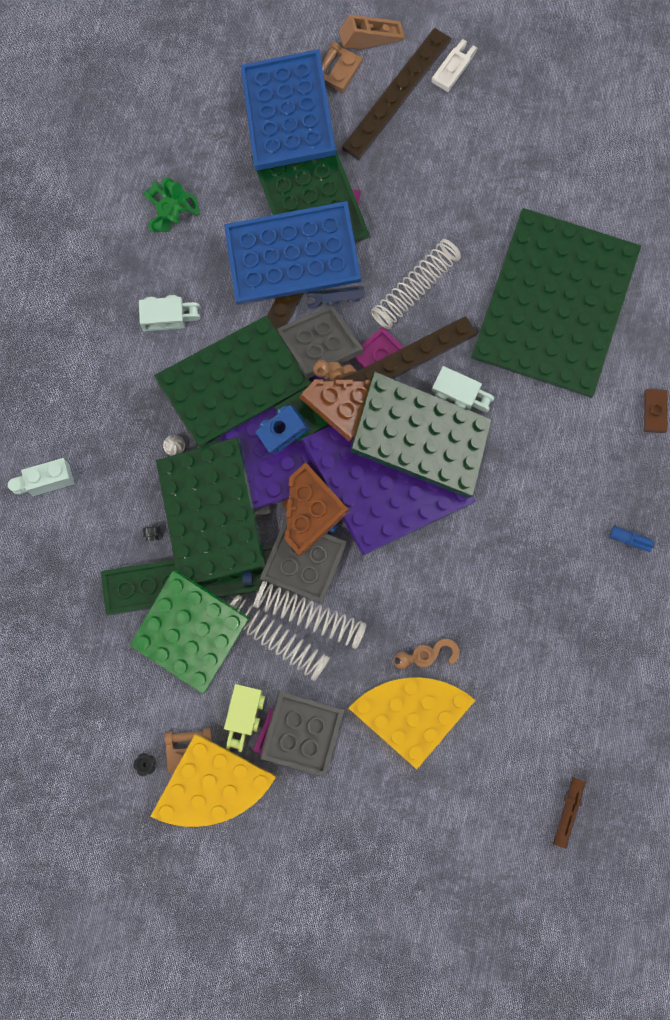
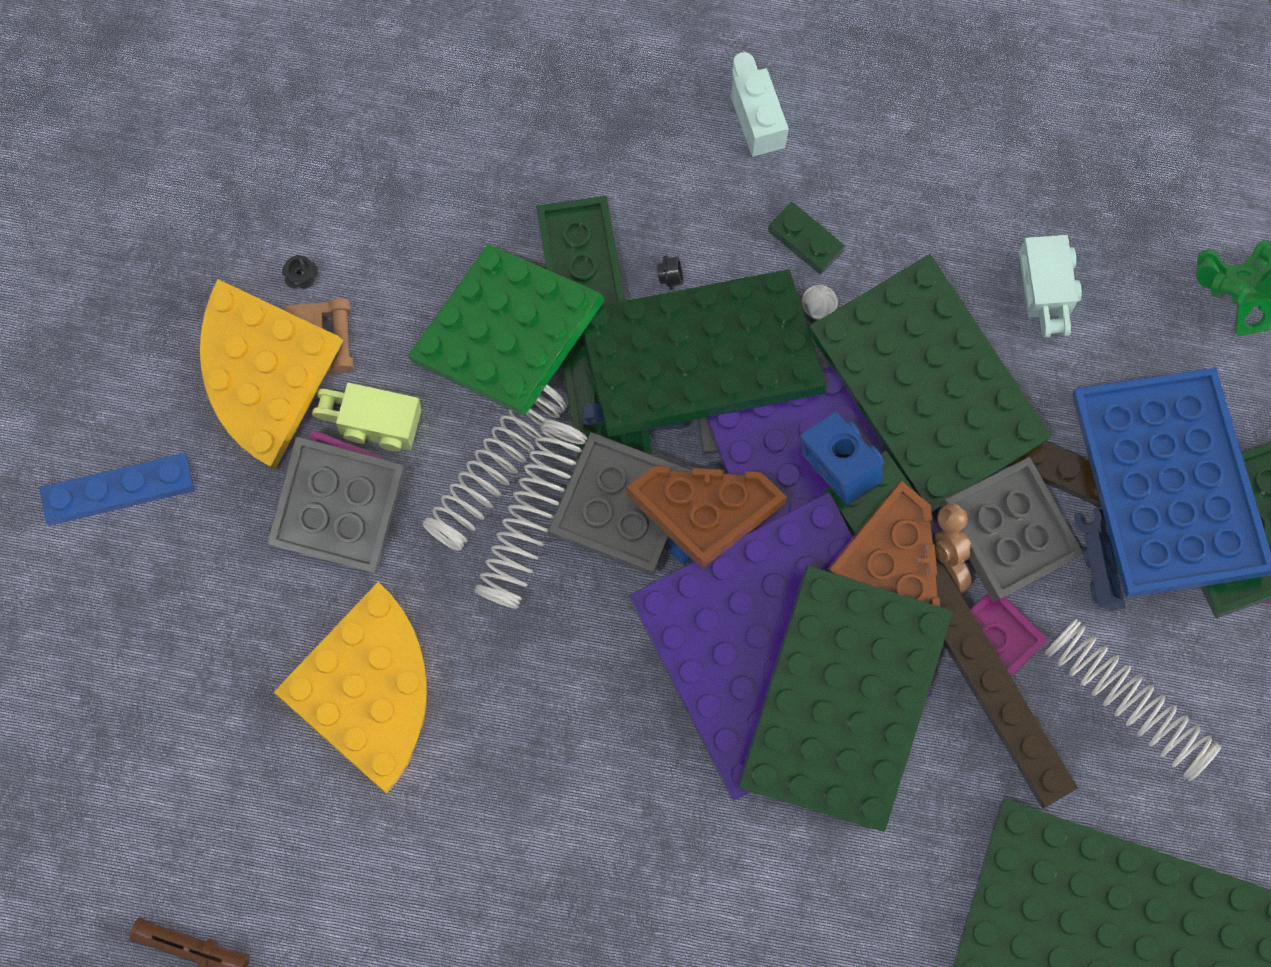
camera: 85 degrees right, 5 degrees down
(131, 452) = (806, 238): none -> dark green plate
(287, 876) = (116, 489): none -> blue plate
(425, 656) = (461, 709): medium nougat piece -> none
(460, 390) = (934, 774): light aqua brick -> none

